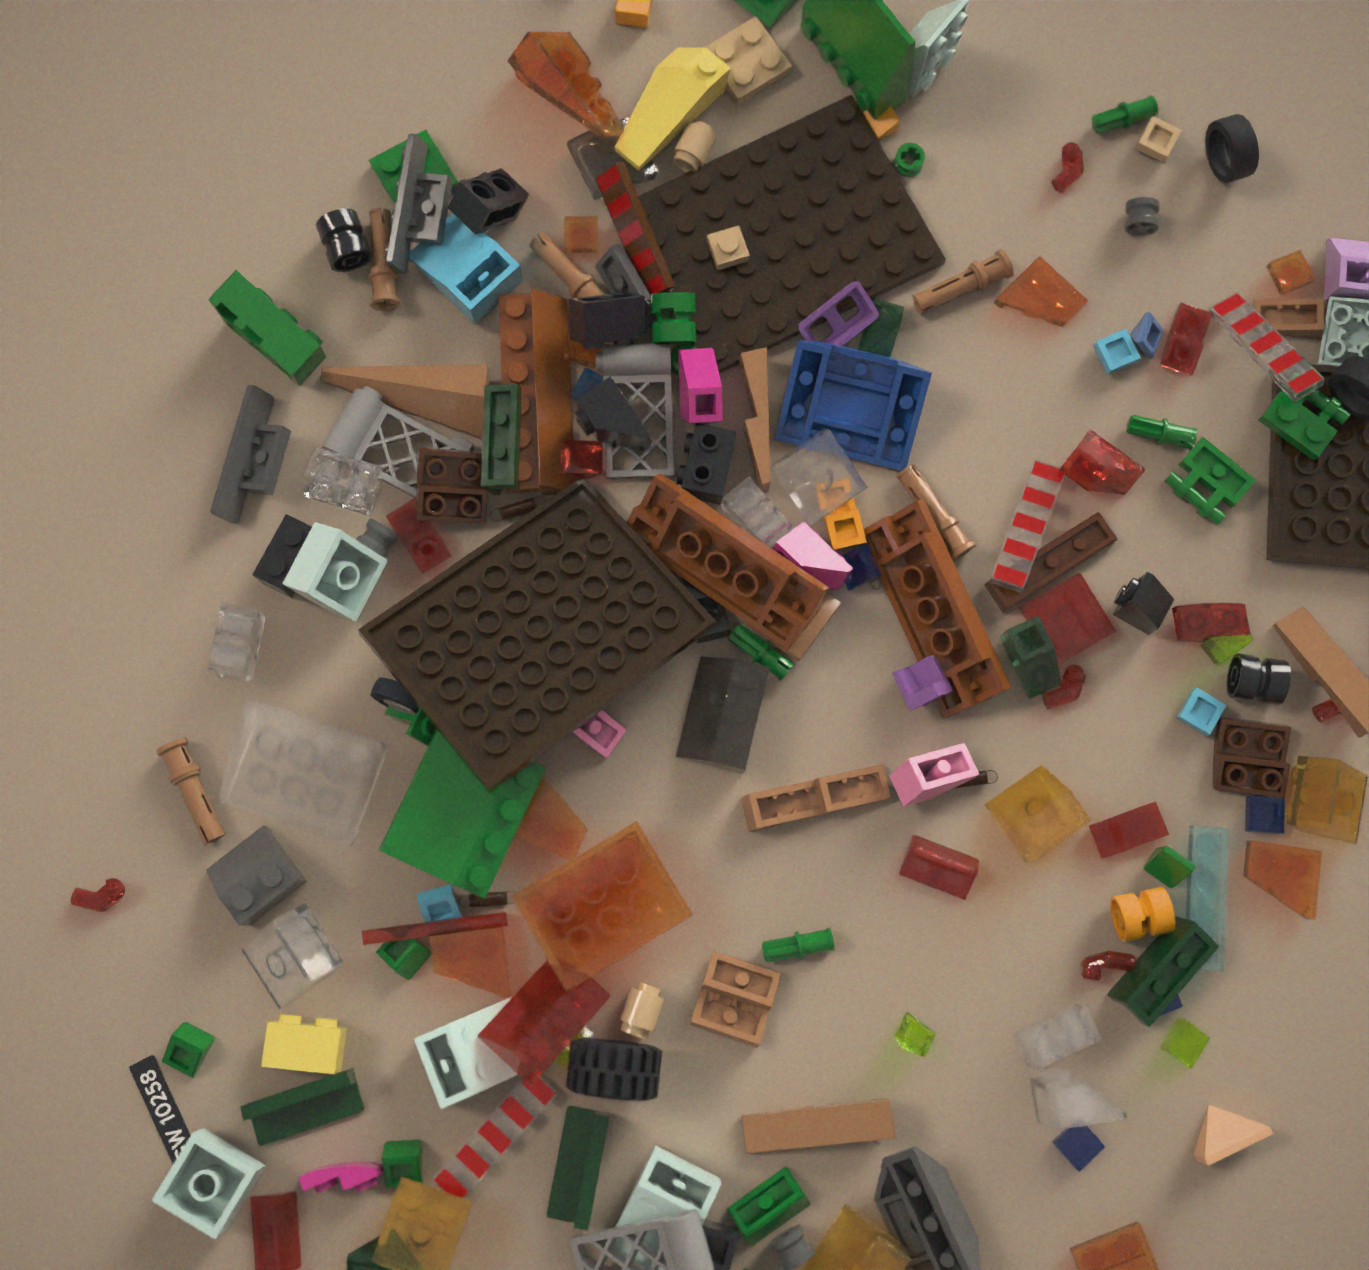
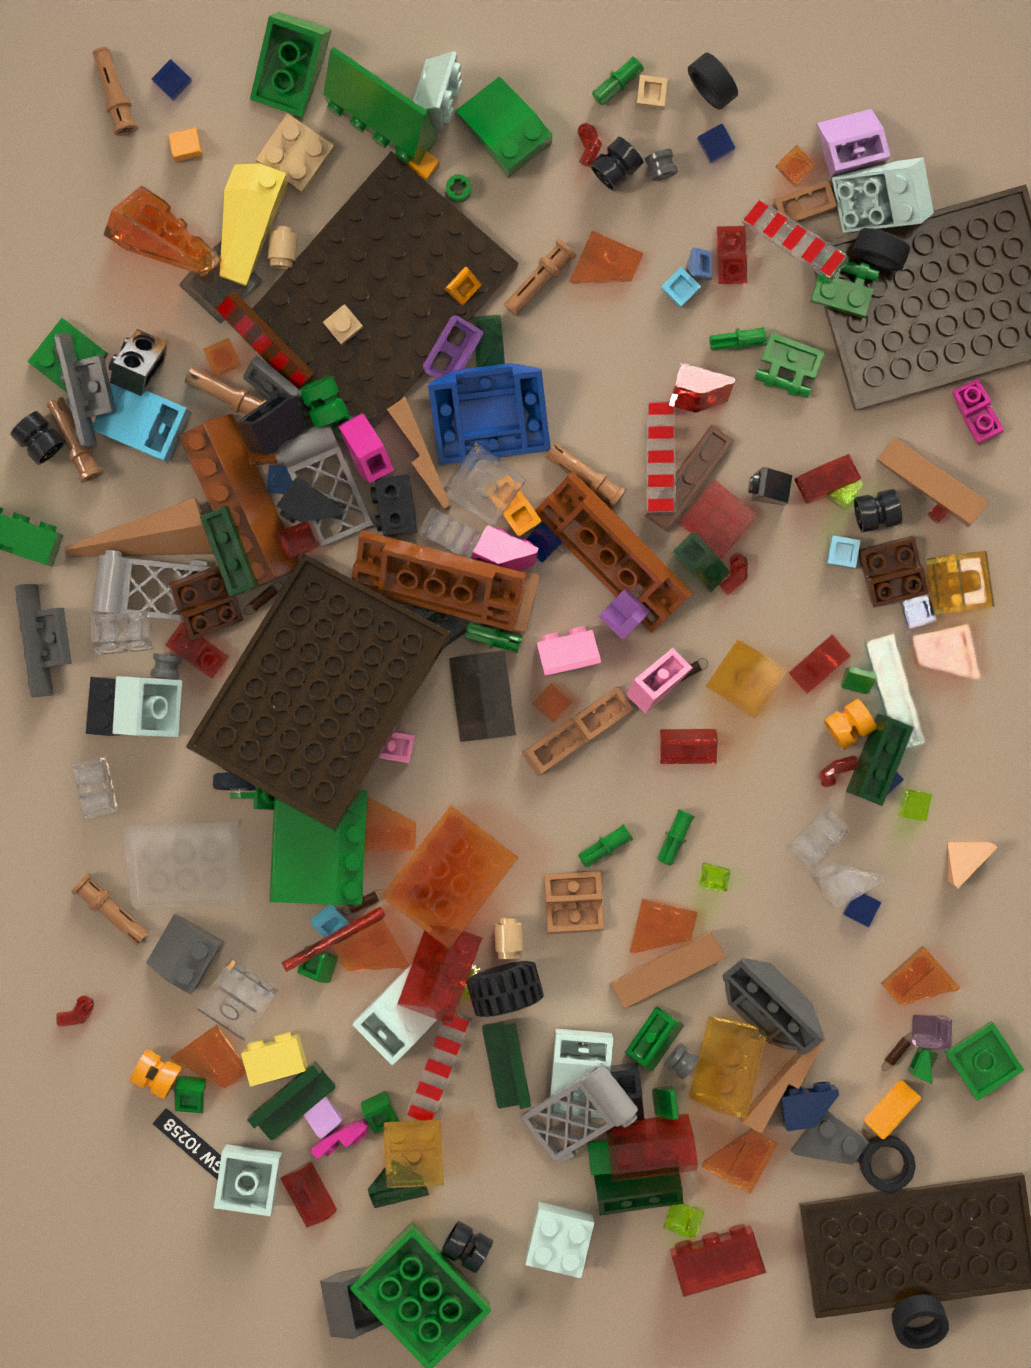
camera: 15 degrees left, 10 degrees up
(162, 1018) = (163, 1080): none -> light orange wheel
(232, 1015) = (212, 1058): none -> clear orange wing
(333, 1142) = (323, 1117): none -> lavender slope
(799, 753) = (552, 702): none -> clear orange plate
(829, 1069) = (661, 926): none -> clear orange wing
(841, 701) = (568, 652): none -> bright pink slope
(876, 256) = (463, 286): none -> light orange slope
(885, 968) = (675, 837): none -> green axle
(986, 117) = (505, 126): none -> green slope
(1098, 194) = (618, 162): none -> black wheel
(1209, 218) = (716, 143): none -> clear blue tile

